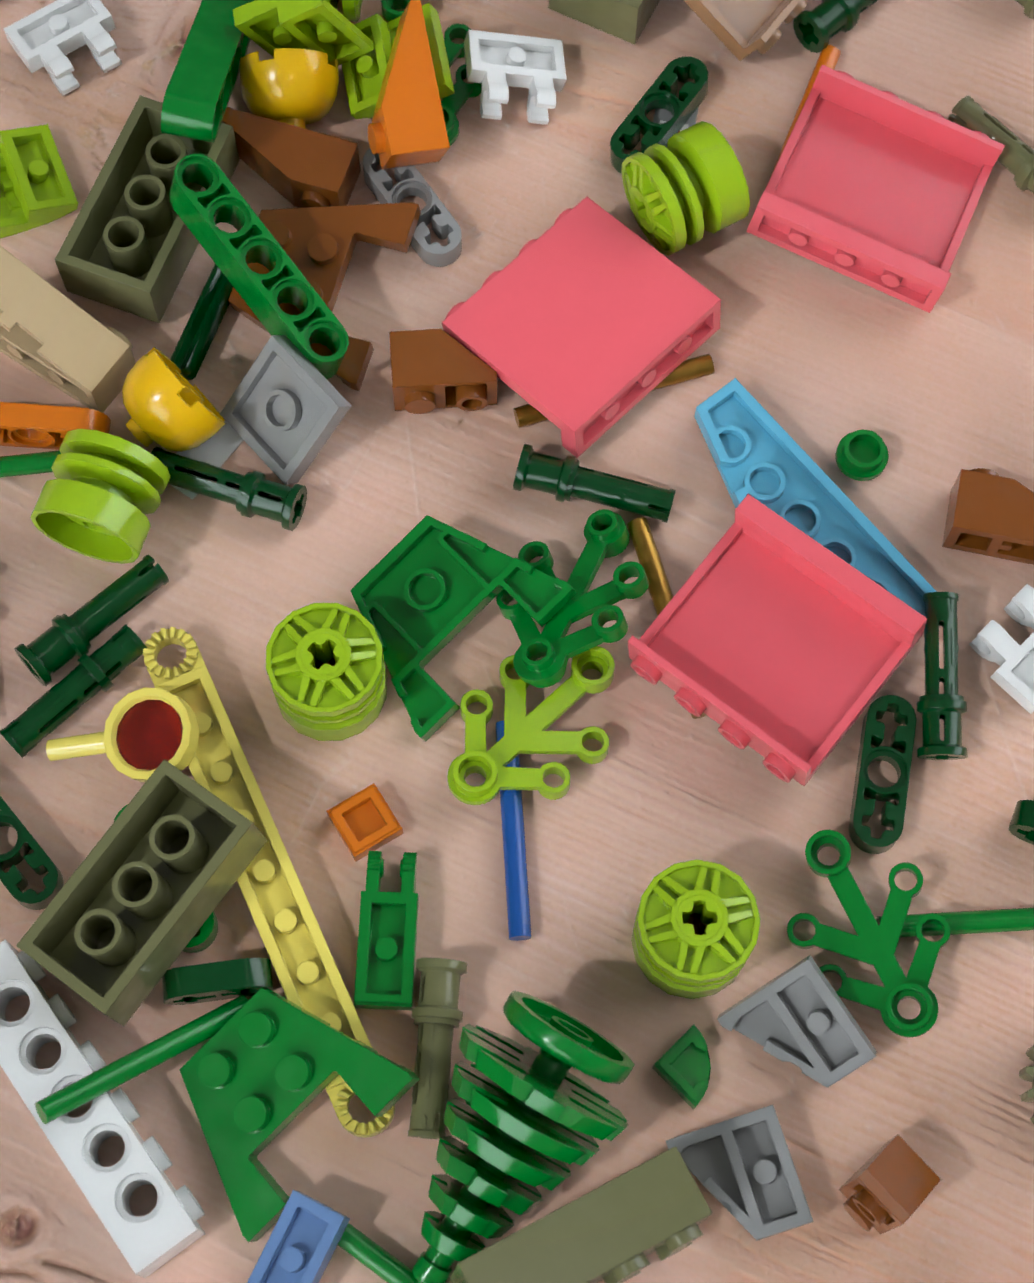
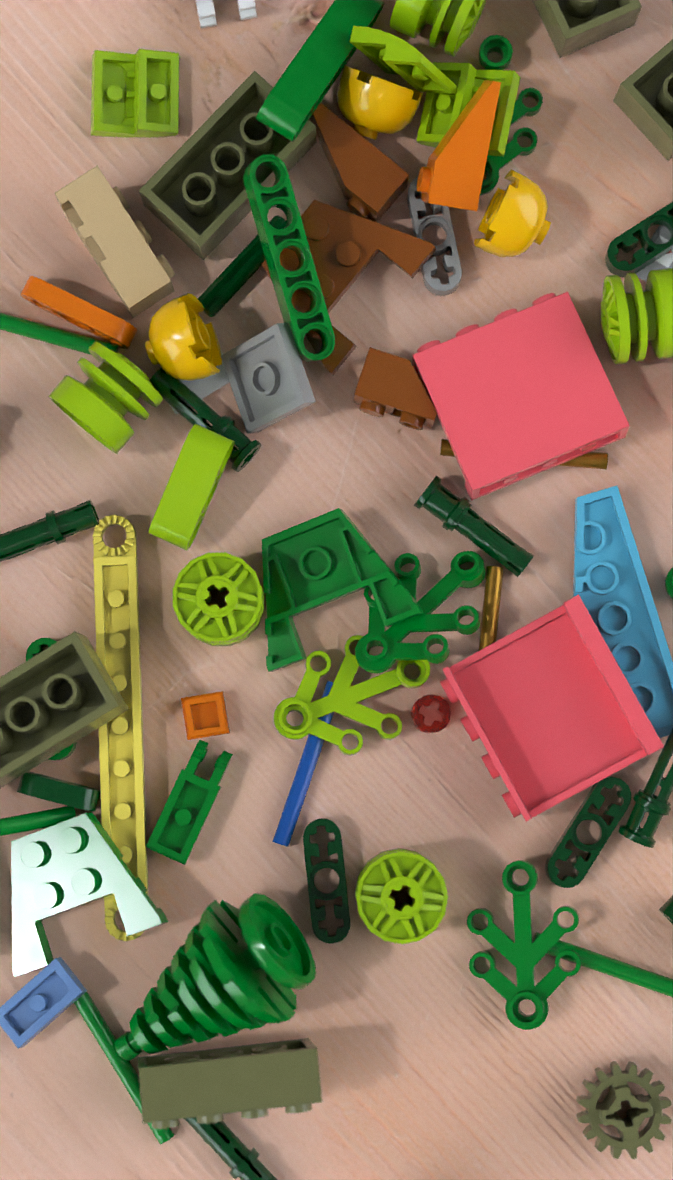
camera: 20 degrees right, 15 degrees up
(72, 634) = (48, 491): dark green pin -> none
(138, 735) = (73, 593): piece -> none
(242, 560) = (191, 486): none -> lime beam
(437, 1017) = (198, 879): olive pin -> none
(493, 147) = (514, 218): none -> yellow cylinder
(515, 61) = (565, 145): white plate -> none
(628, 988) = (340, 911): none -> dark green beam
(649, 699) = (442, 709): none -> clear red bush
(687, 1067) = (357, 980): green tile -> none
(748, 1171) = (368, 1070): light grey wing -> none
(803, 1023) = (449, 987): light grey wing -> none
(888, 1187) = (455, 1124): dark orange slope -> none

